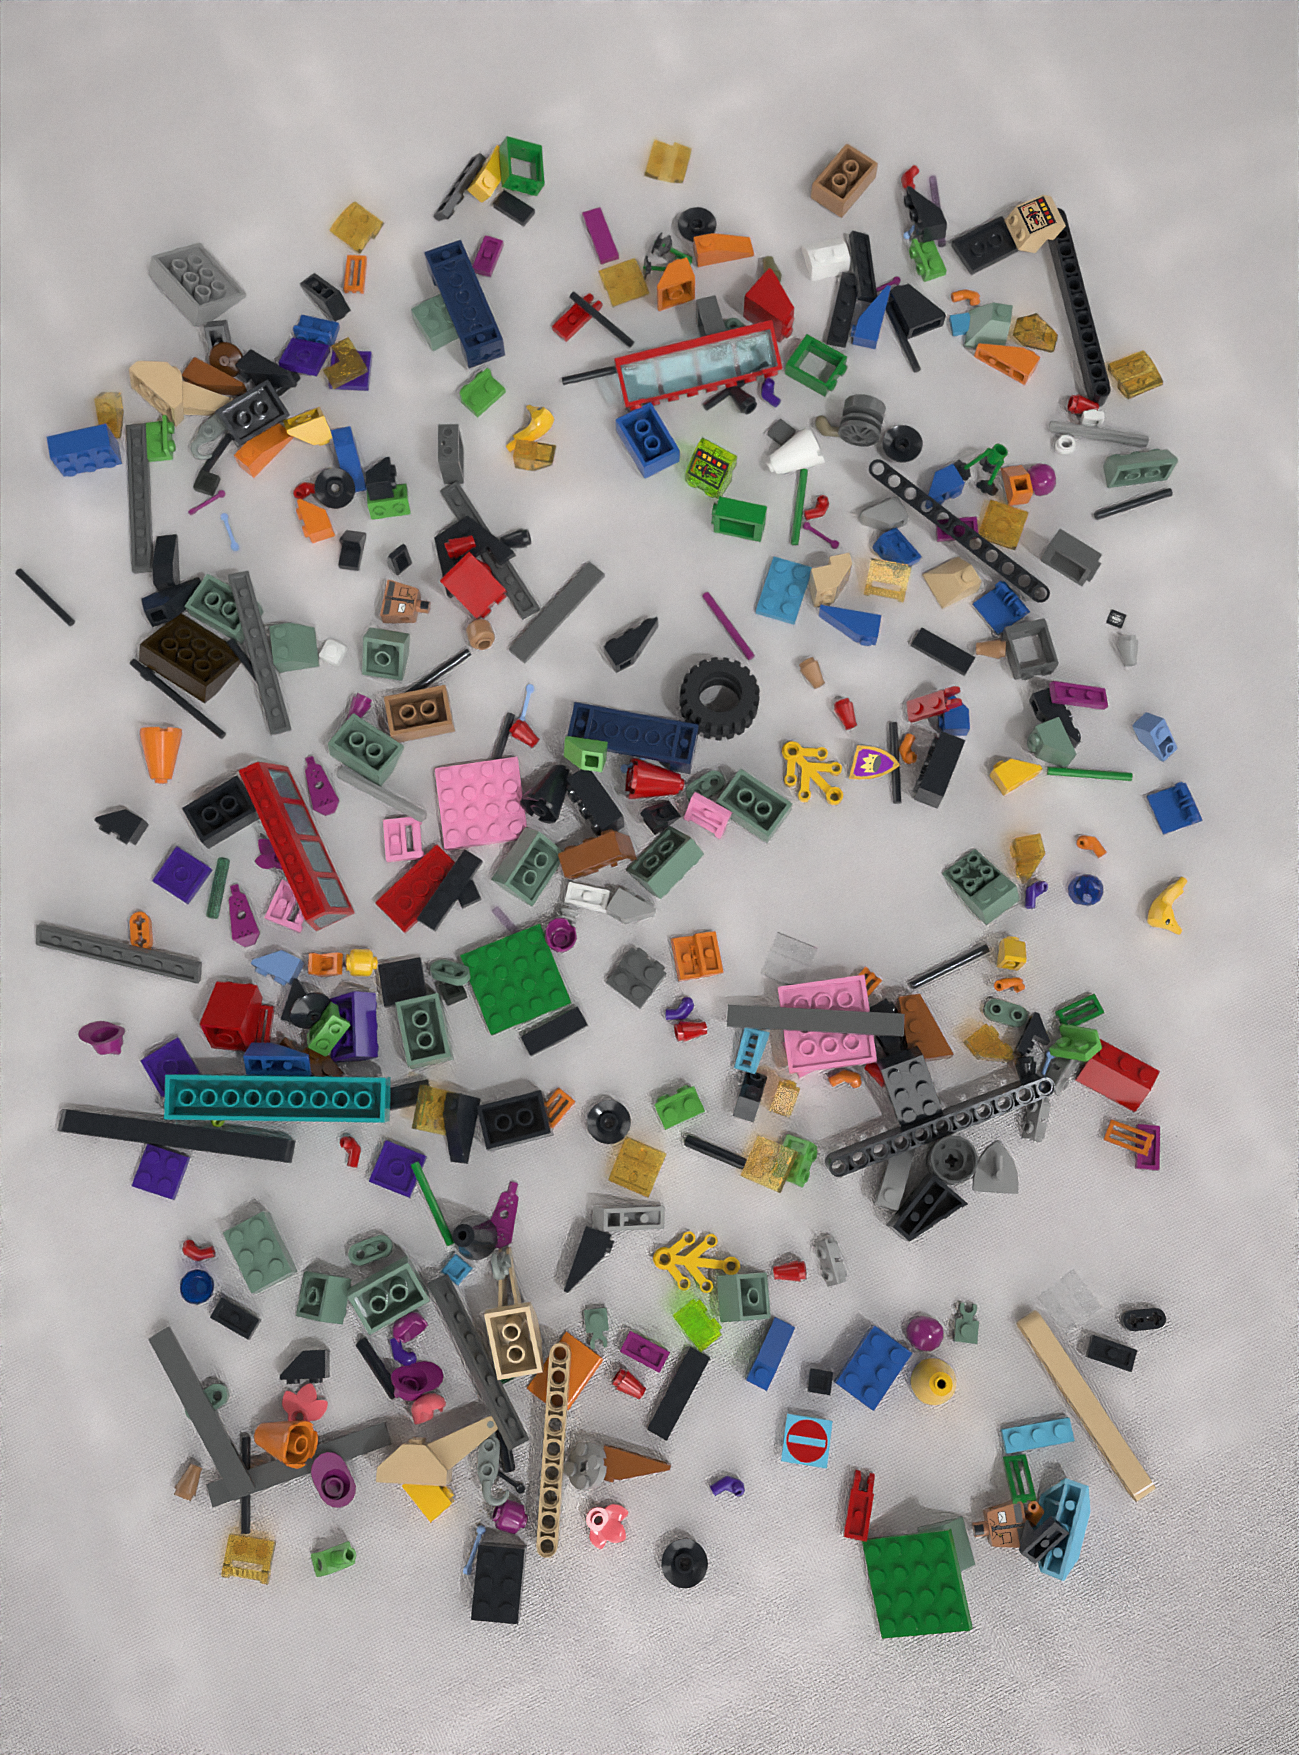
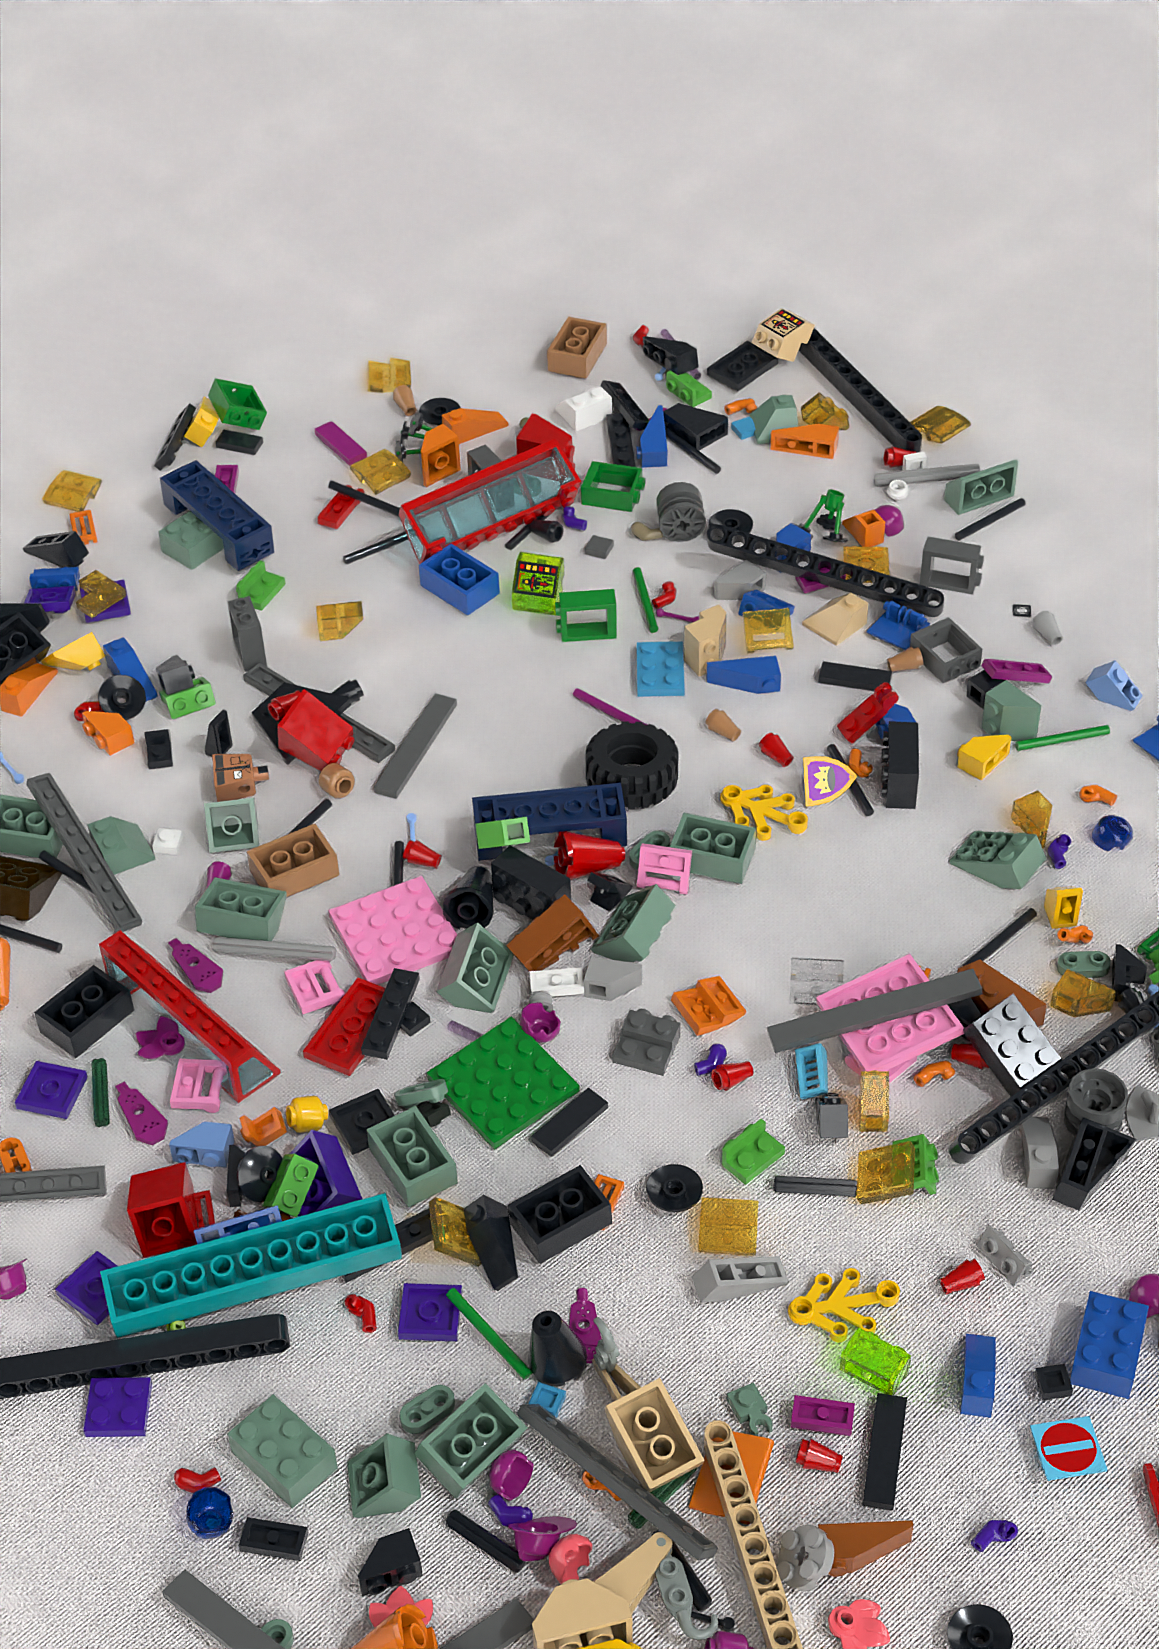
camera: 20 degrees left, 30 degrees down
(540, 424) = (333, 591): yellow animal -> none
(590, 1252) = (710, 1331): black slope -> none
(627, 648) = (509, 752): black slope -> none
(671, 197) = (404, 398): none -> medium nougat cone
(743, 1297) = (917, 1319): sand green slope -> none
(796, 453) = (625, 553): white cone -> none

